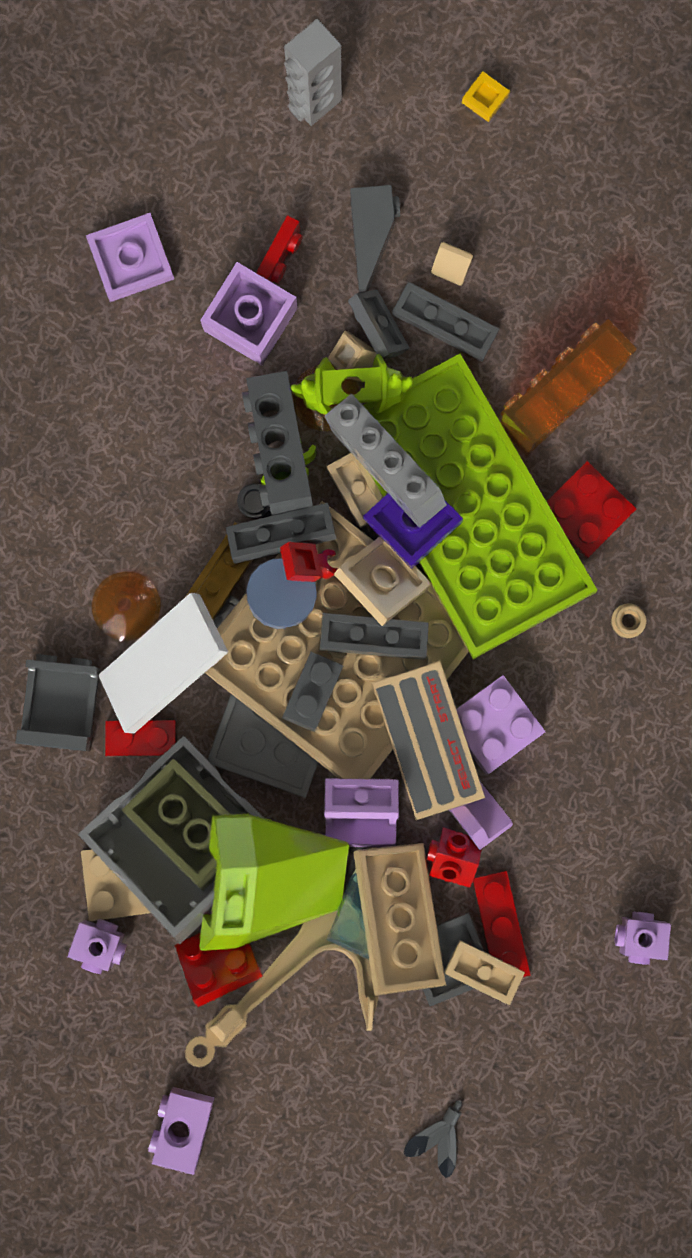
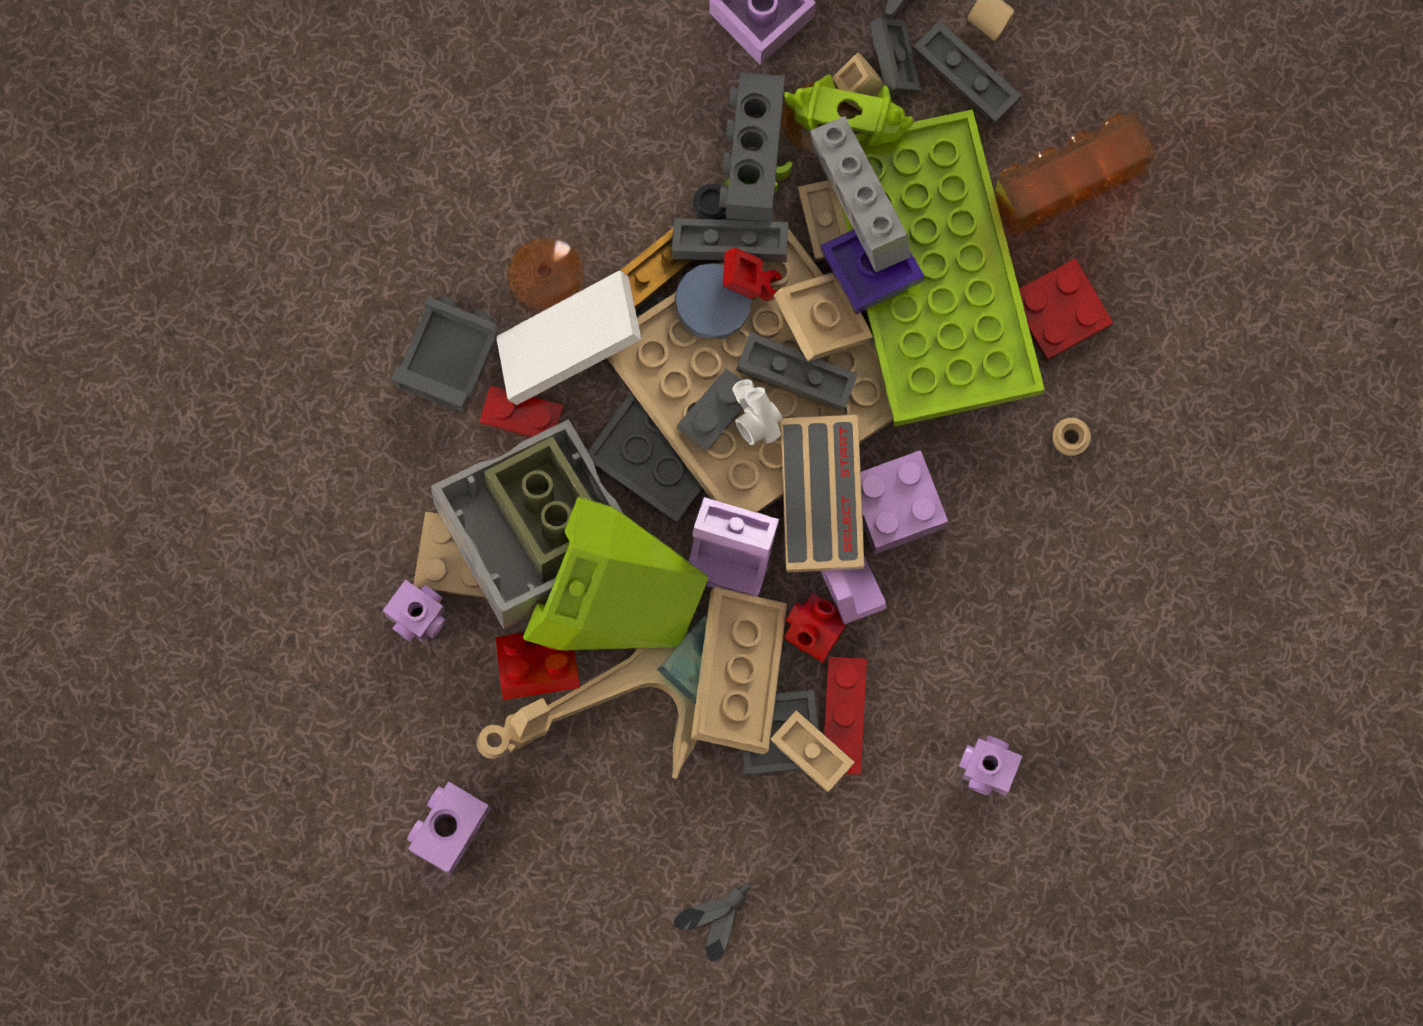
camera: 15 degrees right, 5 degrees down
(354, 687) = (760, 414): none -> white plate

